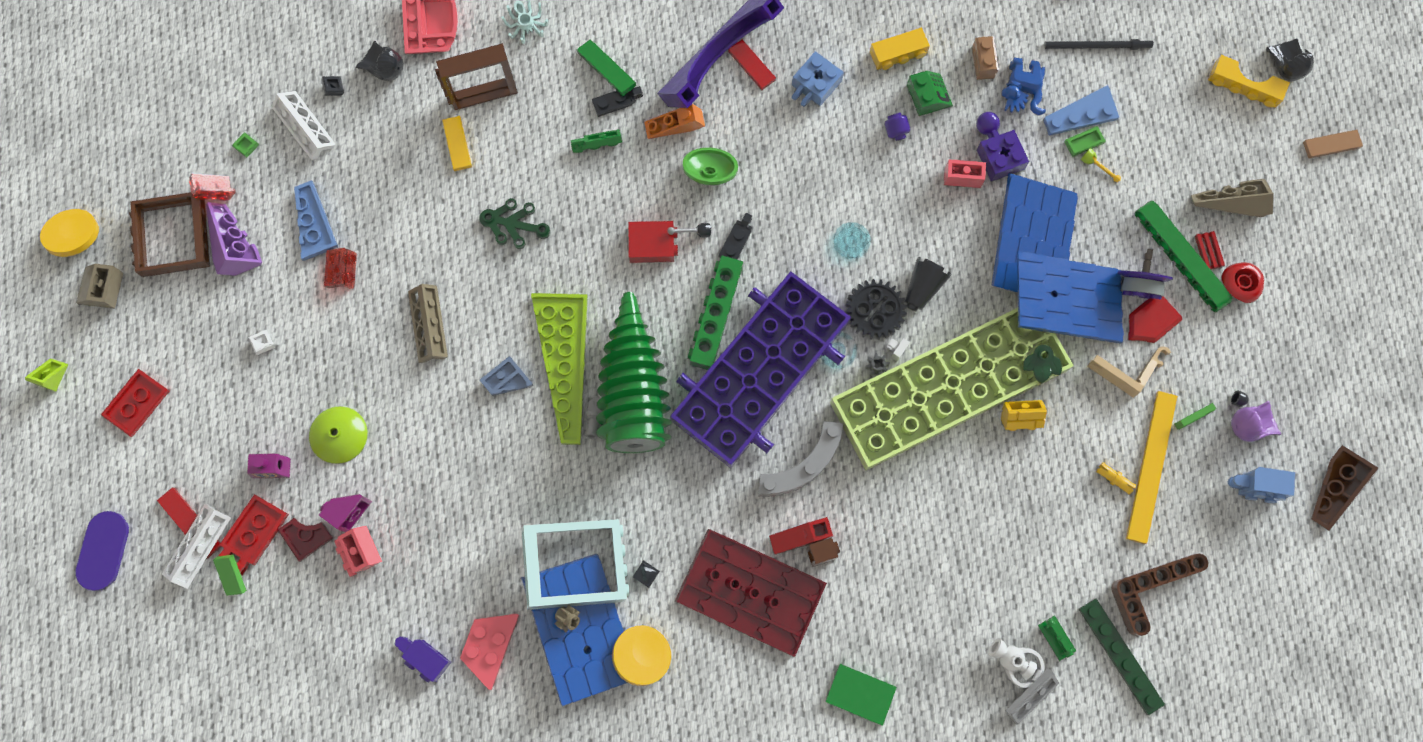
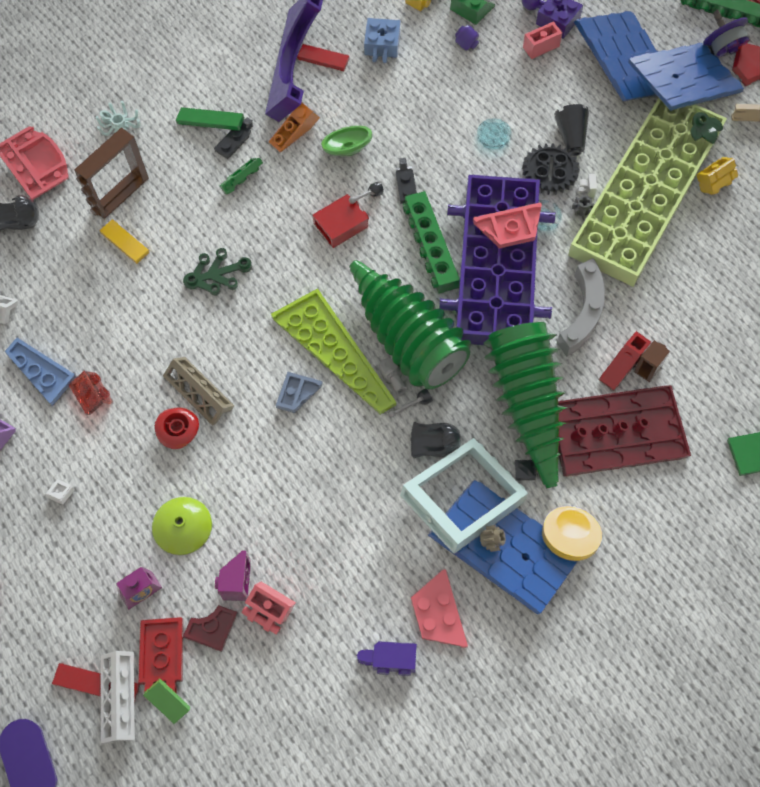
camera: 30 degrees left, 10 degrees down
(386, 346) = (176, 427): none -> red hat
(587, 499) = (434, 439): none -> black piece
(605, 454) = (423, 398): none -> hinge
(689, 515) = (530, 390): none -> green cone
(789, 347) = (511, 225): none -> coral wing

